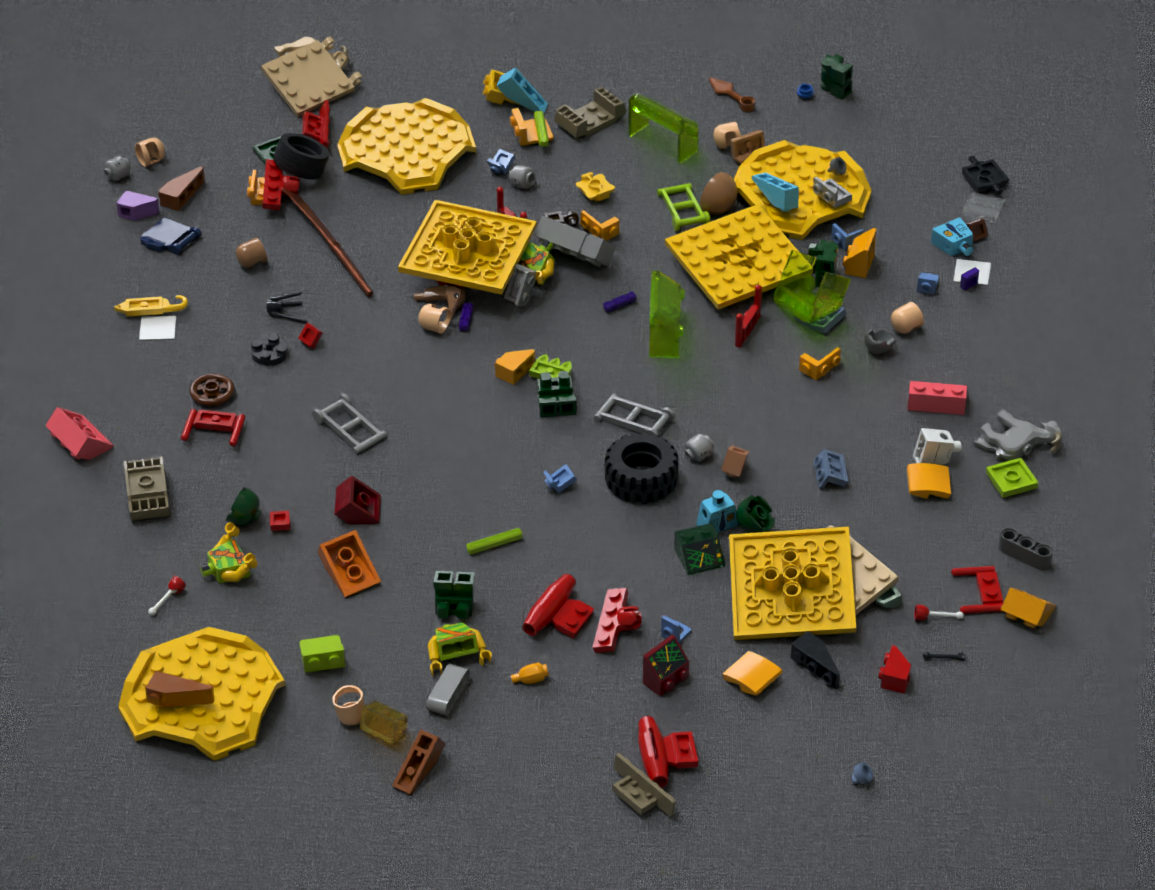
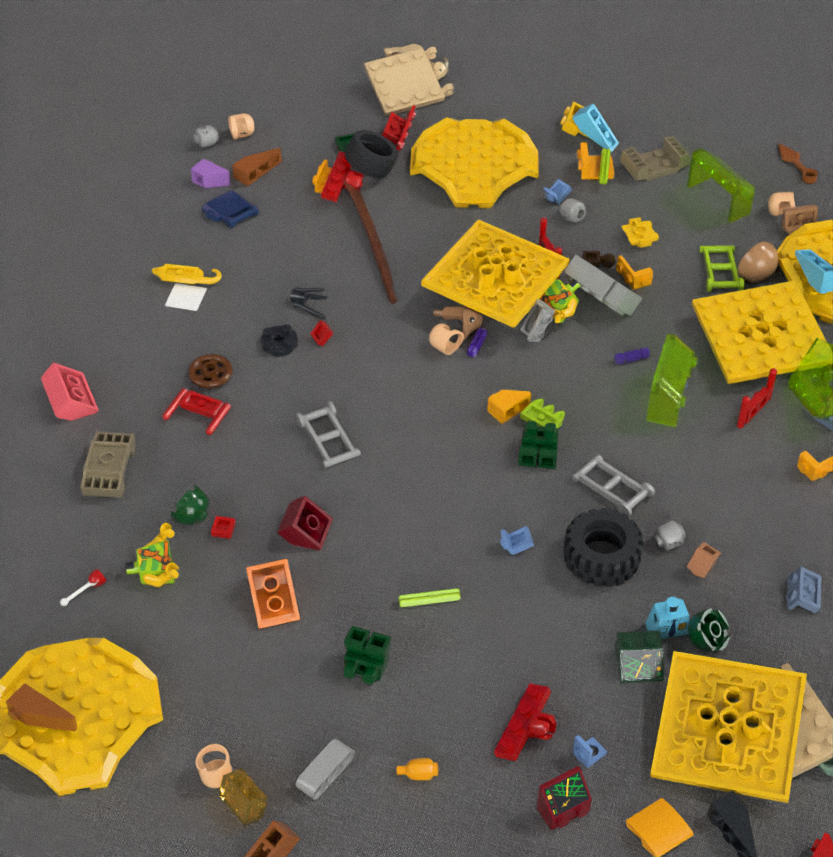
camera: 15 degrees right, 5 degrees up
(251, 253) = (293, 240): medium nougat helmet -> none
(322, 653) = (211, 692): lime bracket -> none
(454, 642) = (348, 712): torso -> none
(556, 607) = (468, 693): red plate -> none

